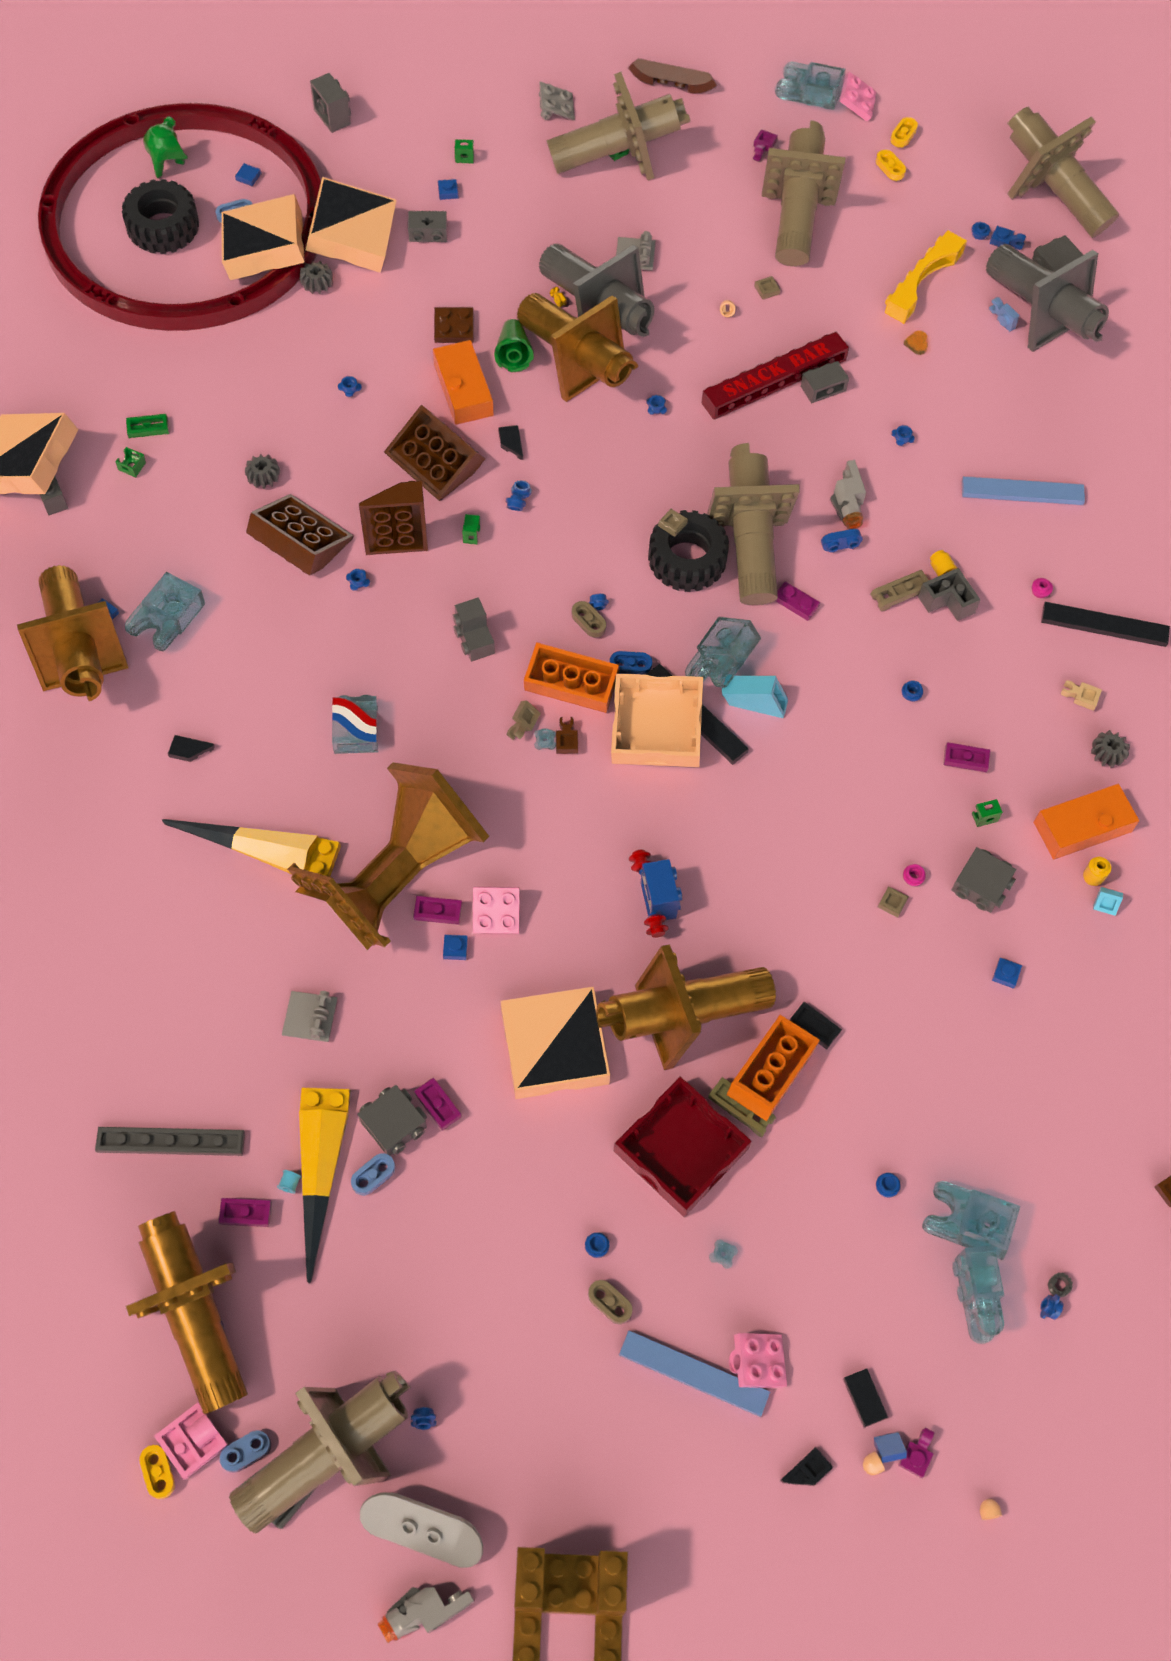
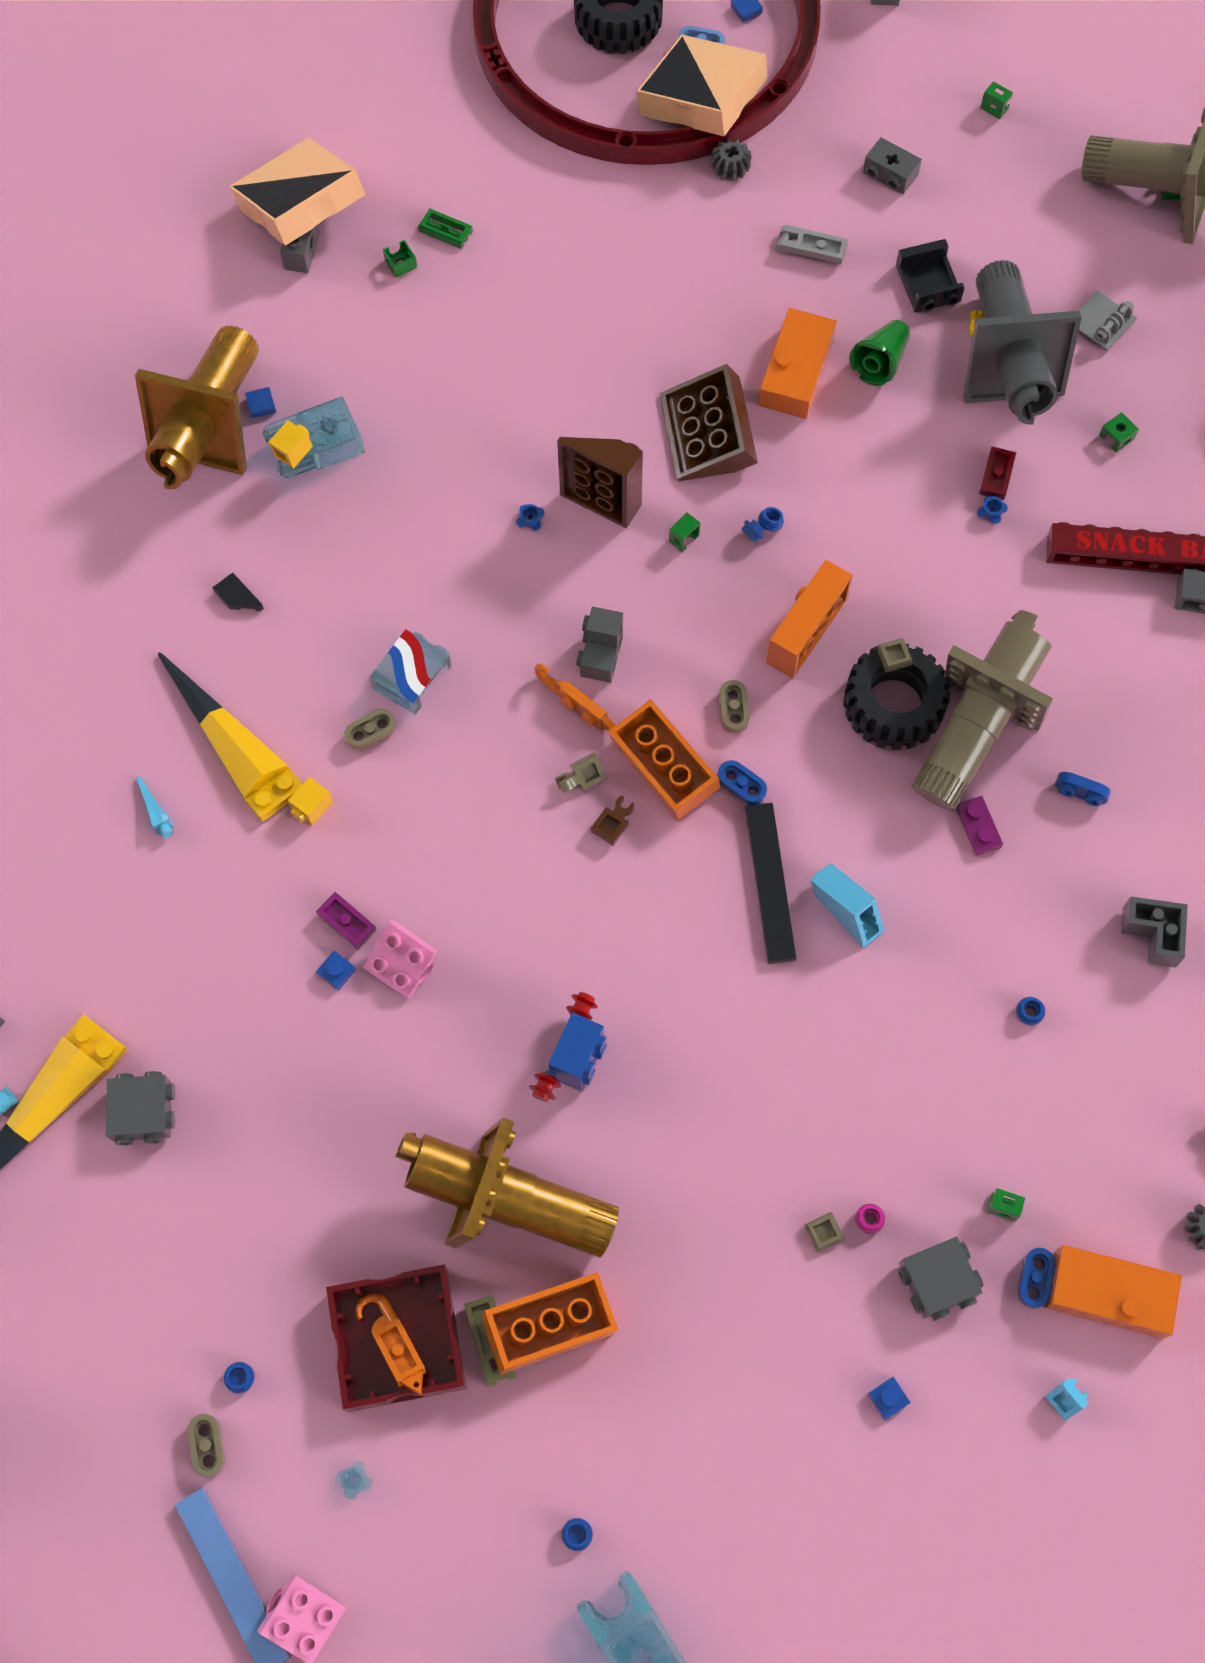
camera: 40 degrees right, 5 degrees up
(157, 621) = (290, 443): none -> yellow brick
(249, 926) = (158, 817): none -> medium azure piece
(262, 471) = (519, 343): dark grey gear -> none
(297, 533) = (506, 431): reddish brown slope -> none
(310, 1016) = (146, 946): light grey hinge -> none
(349, 386) = (677, 294): blue plate -> none
(351, 224) = (806, 119): light nougat tile -> none
(352, 849) = (310, 801): none -> yellow brick
(354, 780) = (368, 727): none -> dark tan plate
(372, 1174) = (85, 1149): medium blue plate -> none
(412, 303) = (811, 244): none -> light grey plate
(425, 827) = (266, 862): pearl gold panel -> none
(437, 1104) = (196, 1121): magenta plate -> none
(447, 189) = (947, 134): blue plate -> none
(453, 324) = (839, 292): reddish brown plate -> none
(483, 676) = (574, 699): none -> orange plate
(504, 283) = (928, 276): none -> black panel
(510, 440) = (803, 457): black tile -> none
(545, 734) = (593, 802): clear light blue plate -> none
(554, 1042) = (350, 1138): tile -> none
(555, 101) = (1144, 95): light grey hinge -> none
(584, 346) = (946, 397): pearl gold piece -> none
(597, 535) = (809, 618): none -> orange brick
(598, 601) = (759, 693): blue plate -> none
(644, 381) = (997, 473): none -> dark red plate
(657, 720) = (718, 864): light nougat tile -> none
(685, 1148) = (394, 1343): none -> orange plate
(702, 316) = (1120, 438): none -> green piece
(723, 308) = (1155, 439): light nougat hinge -> none
(723, 650) = (844, 834): clear light blue brick -> none
(816, 1024) = (635, 1308): black tile -> none
(848, 496) = (1129, 742): light grey plate -> none
(899, 590) = (1106, 886): dark tan plate -> none
(942, 562) = (1180, 887): yellow brick -> none
(966, 757) = (1033, 1126): magenta plate -> none
(1038, 844) = (1040, 1280): none -> blue plate
(1097, 871) = (1071, 1360): yellow brick -> none

